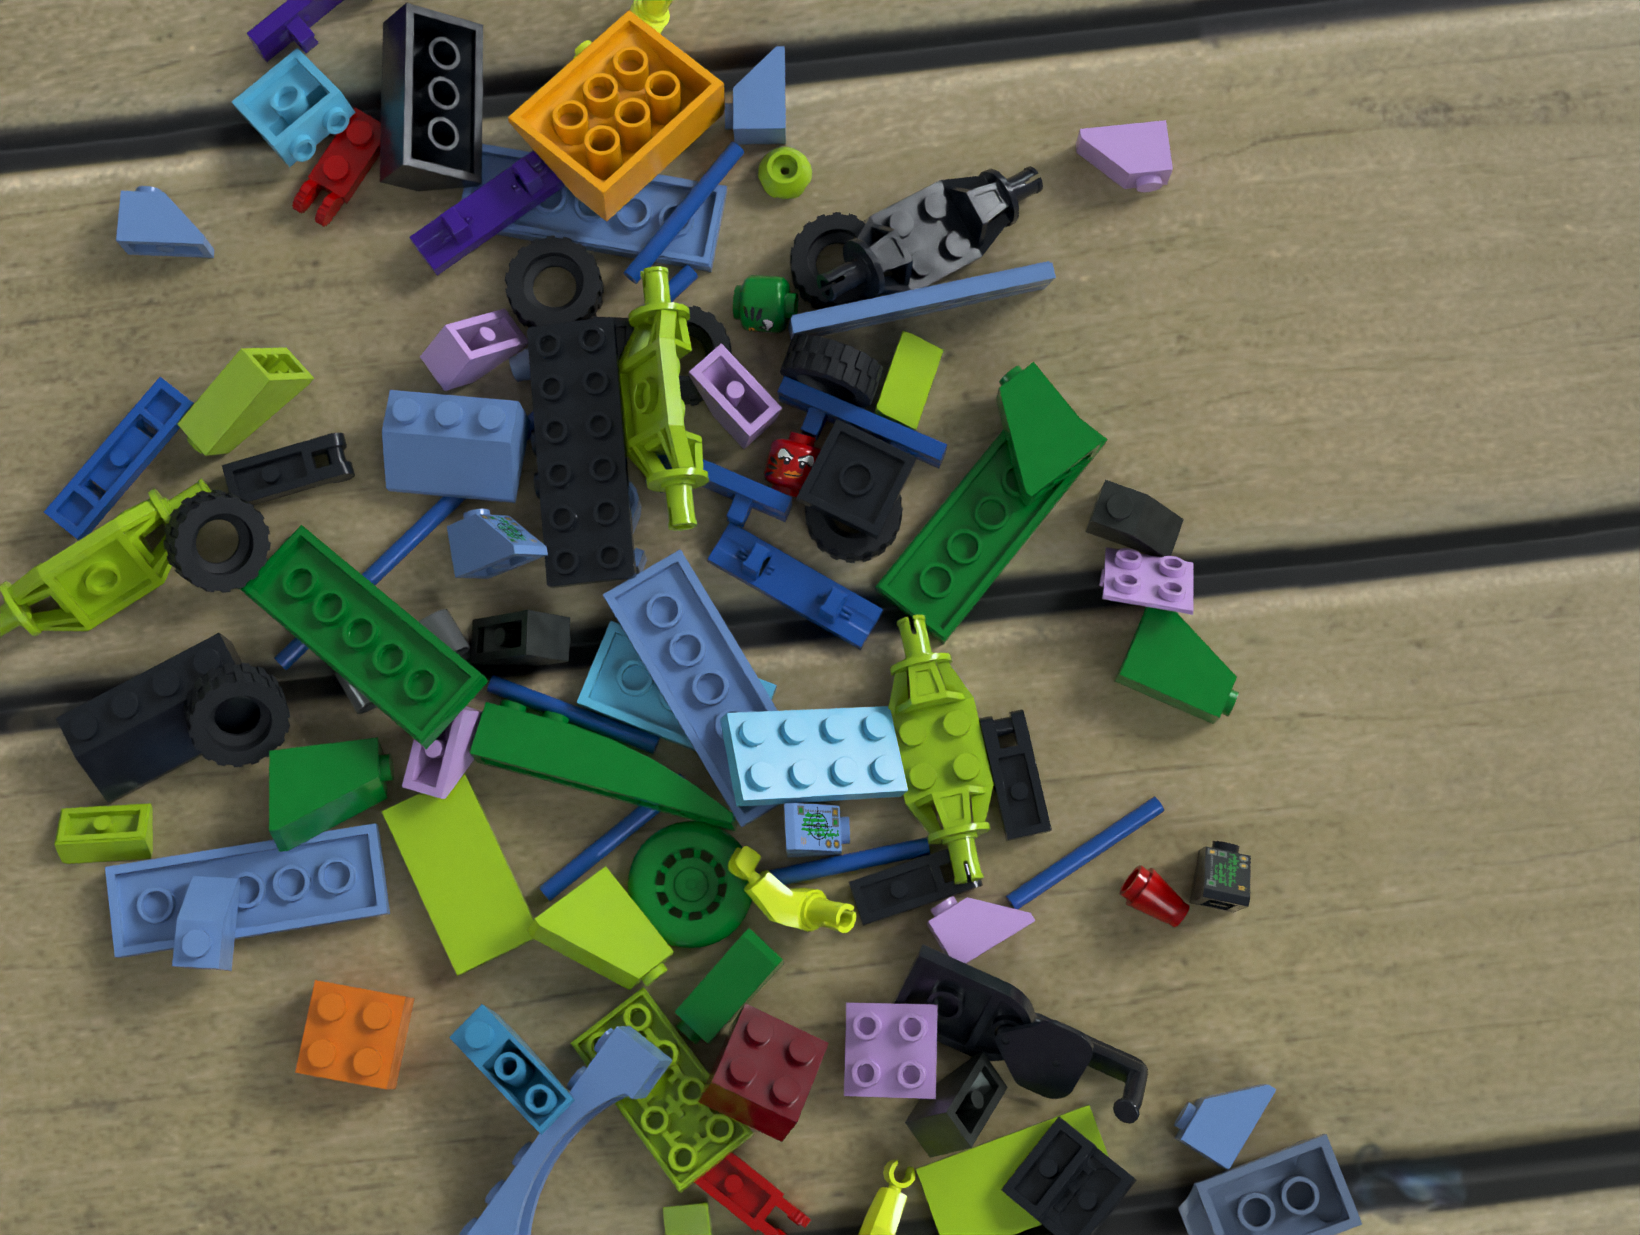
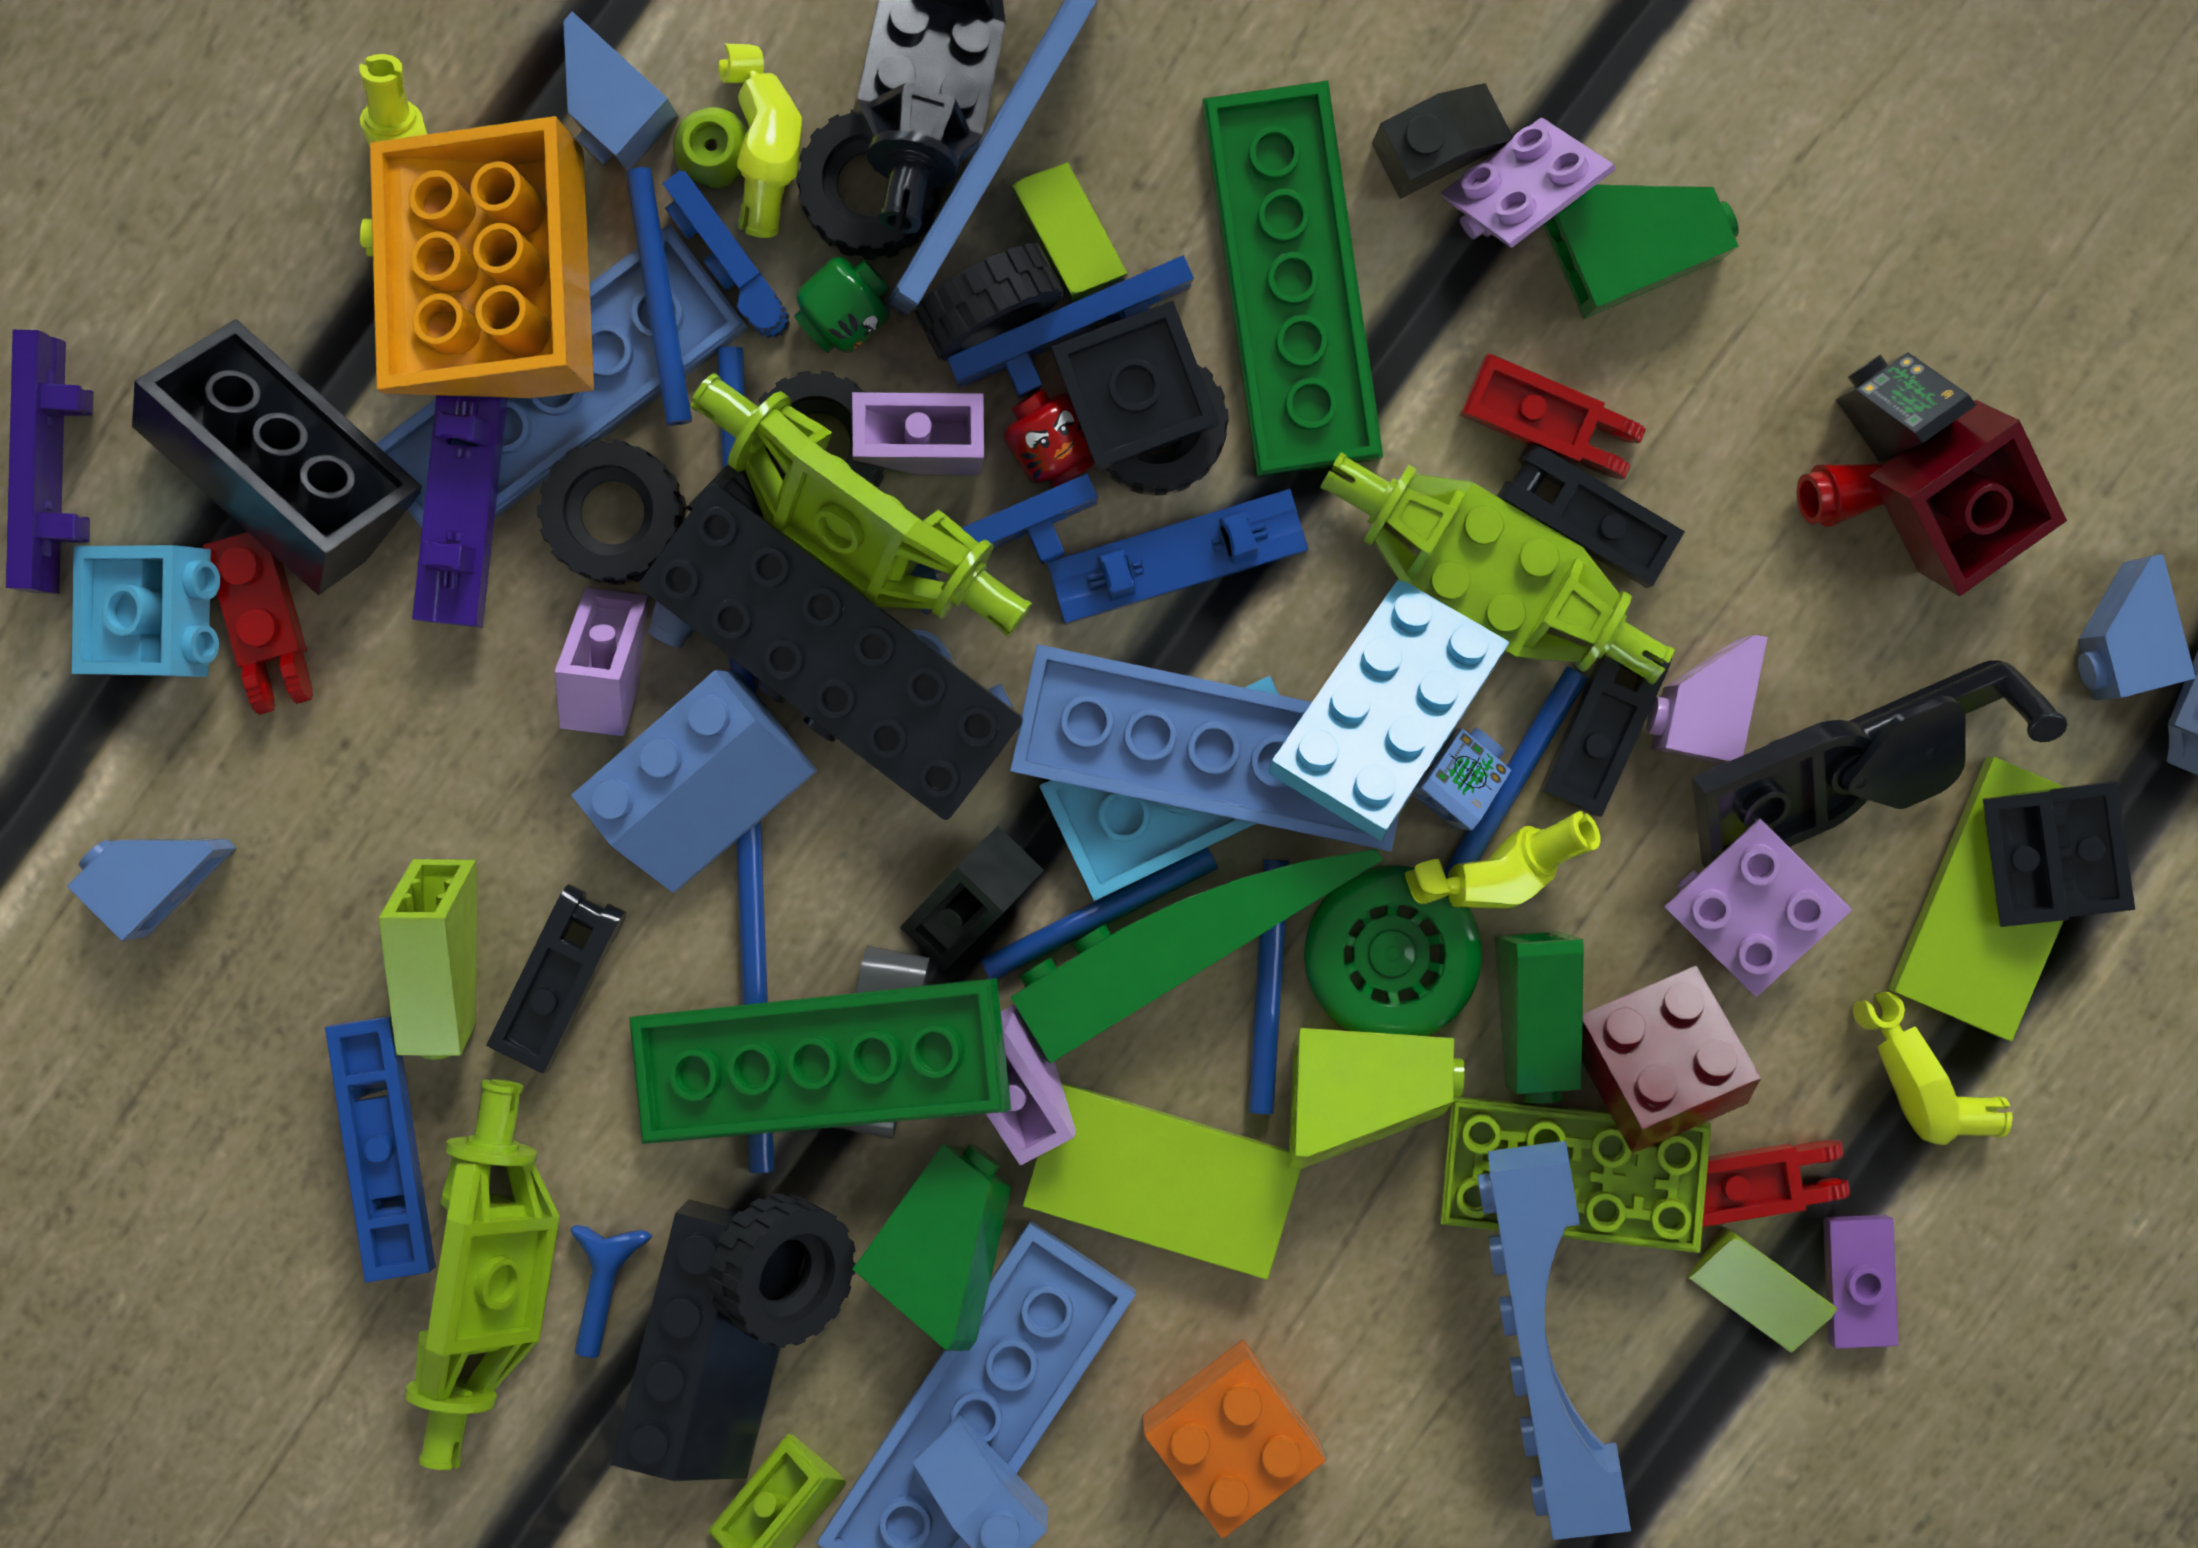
camera: 45 degrees left, 10 degrees up
(161, 627) = (606, 1260): none -> blue piece
(185, 526) = (520, 1126): black tyre -> none
(490, 545) = (841, 838): medium blue slope -> none
(512, 1068) = (1425, 1311): dark azure slope -> none
(735, 230) = (728, 259): none -> blue hinge
(810, 197) = (772, 142): none -> neon yellow arm
(960, 1108) = (1882, 887): pearl dark grey slope -> none
(1041, 432) = (1261, 142): green slope -> none
(1044, 705) = (1547, 415): none -> red hinge
(1085, 853) = (1734, 518): blue bar -> none
(1206, 957) = (1969, 498): none -> dark red brick

